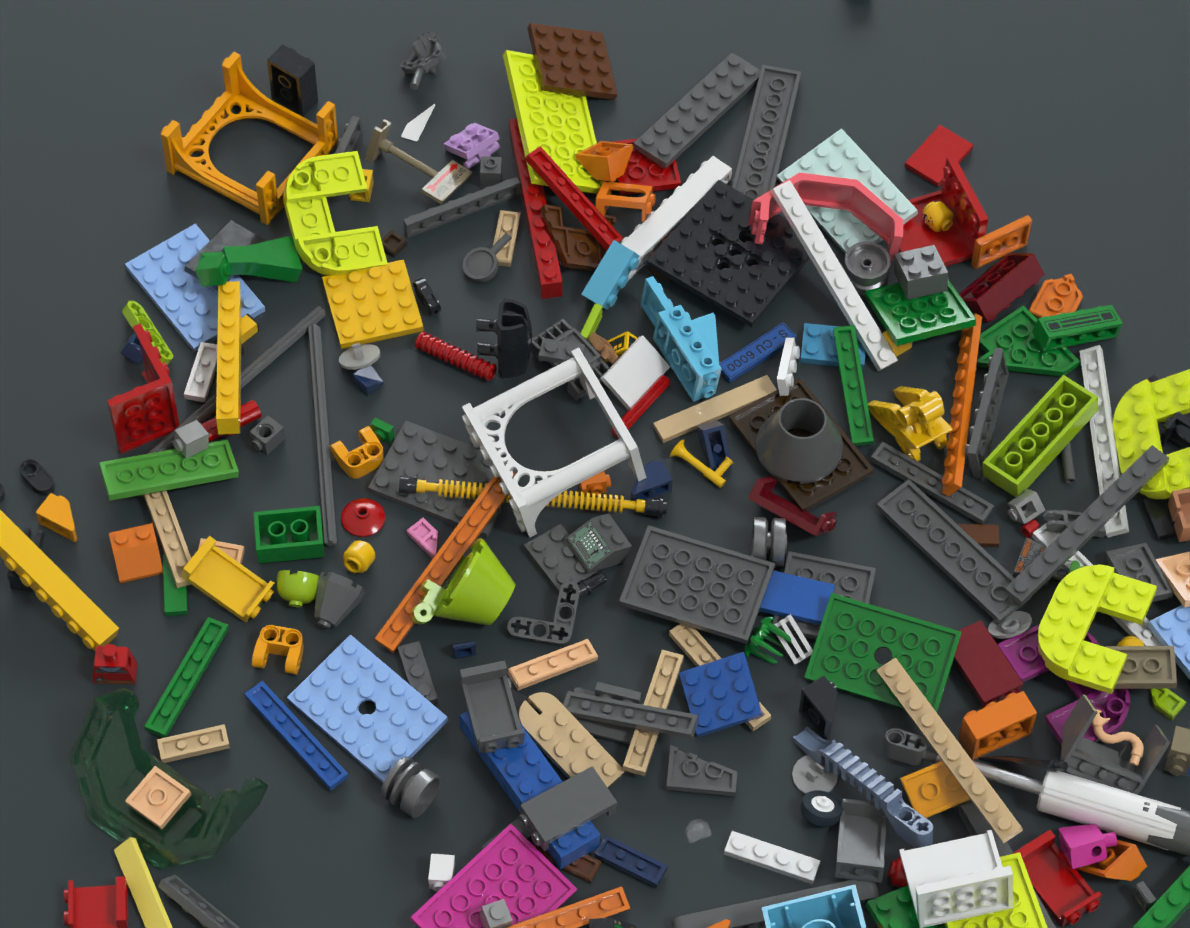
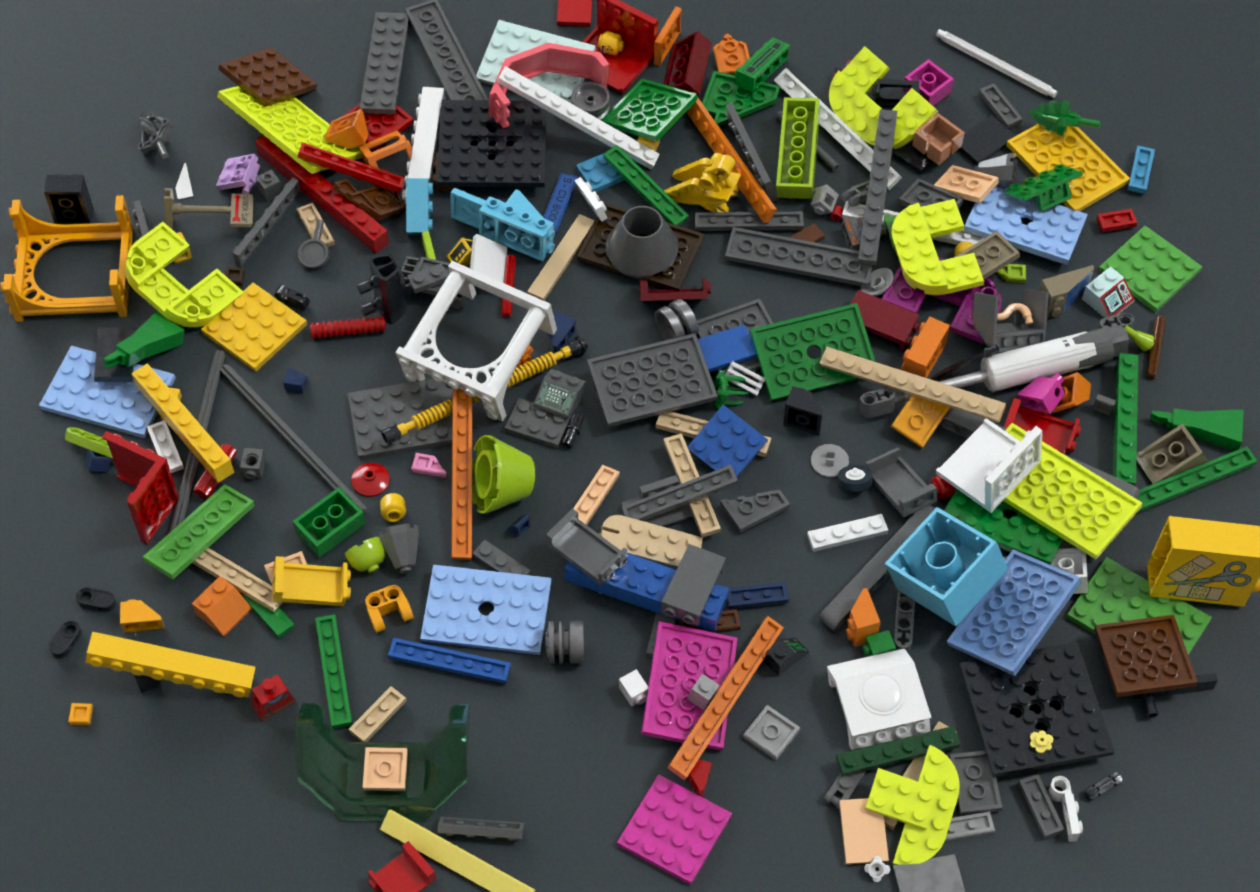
camera: 35 degrees left, 0 degrees up
(191, 439) = (200, 498): light grey brick -> none
(213, 270) = (123, 366): green brick -> none
(359, 356) = (277, 368): light grey piece -> none
(360, 455) = (336, 436): light orange piece -> none
(382, 430) = (336, 409): green plate -> none
(429, 603) = (475, 506): lime leg -> none
(558, 624) = (574, 466): dark grey beam -> none
(603, 347) = (448, 258): medium nougat plate -> none
(697, 830) = (784, 546): clear plate -> none
(713, 443) = (582, 281): dark blue slope -> none
(715, 477) = (597, 303): yellow piece -> none
(904, 819) = (919, 449): sand blue piece -> none
(920, 272) = (632, 84): dark grey brick -> none

